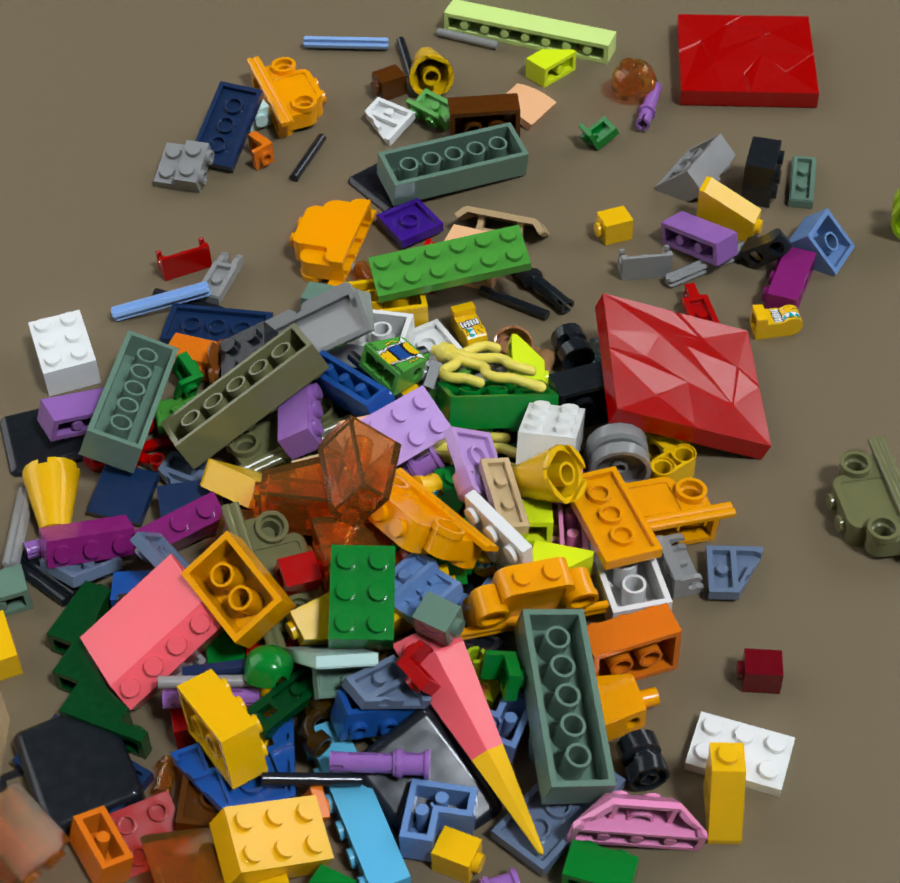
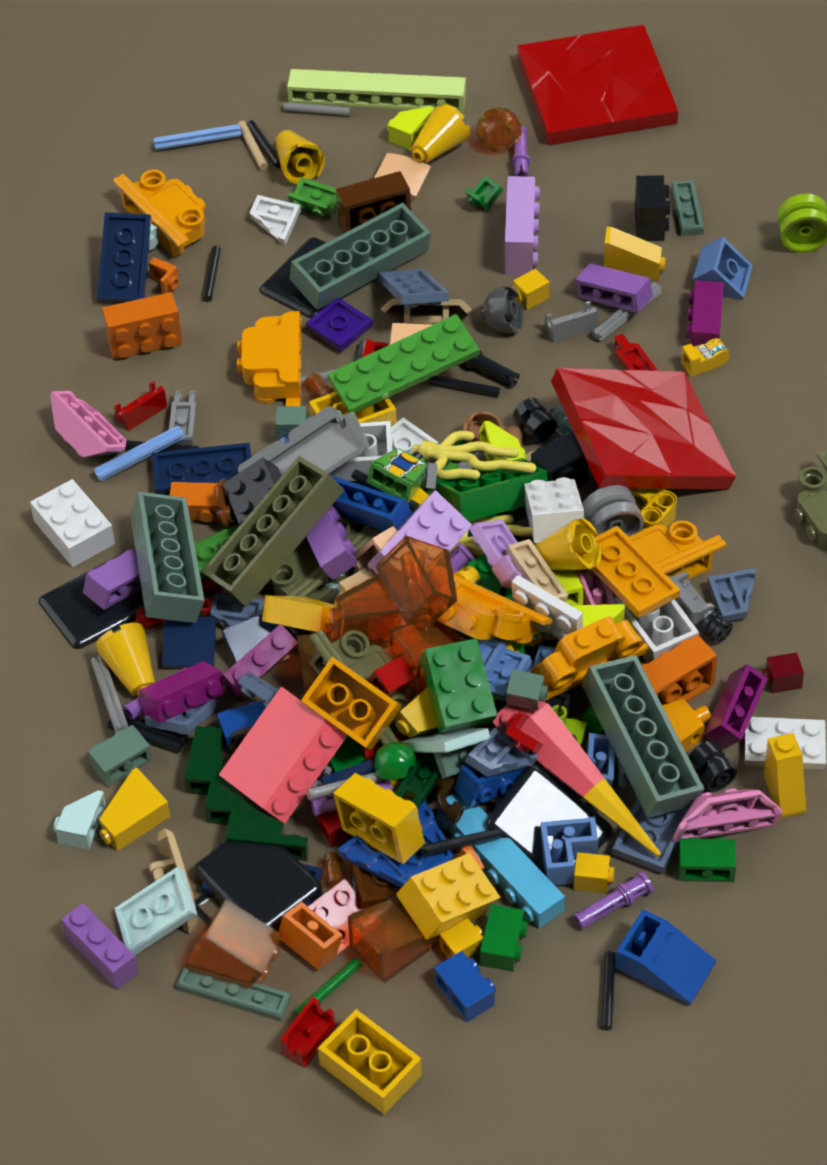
camera: 15 degrees left, 5 degrees up
(119, 265) = (84, 426): none -> bright pink wedge
(184, 166) = (88, 305): light grey plate -> none
(188, 375) = (202, 521): green bracket -> none
(215, 186) = (142, 325): none -> orange brick
(389, 82) = (260, 176): reddish brown brick -> none
(393, 49) = (252, 145): none -> tan bar
(395, 763) = (525, 813): medium lavender pin -> none
(467, 324) = (433, 419): yellow leg -> none
(492, 198) = (413, 287): none -> sand blue plate
(504, 668) = (587, 719): green bracket -> none
(573, 74) = (440, 133): none -> yellow cone
(577, 238) = (502, 310): none -> dark grey cylinder
(623, 163) = (521, 225): none -> lavender brick
(689, 172) = (588, 215): light grey slope -> none
(691, 697) = (735, 706): none -> magenta brick
(698, 602) = (716, 627): none -> black wheel
(768, 248) = (678, 286): black leg -> none

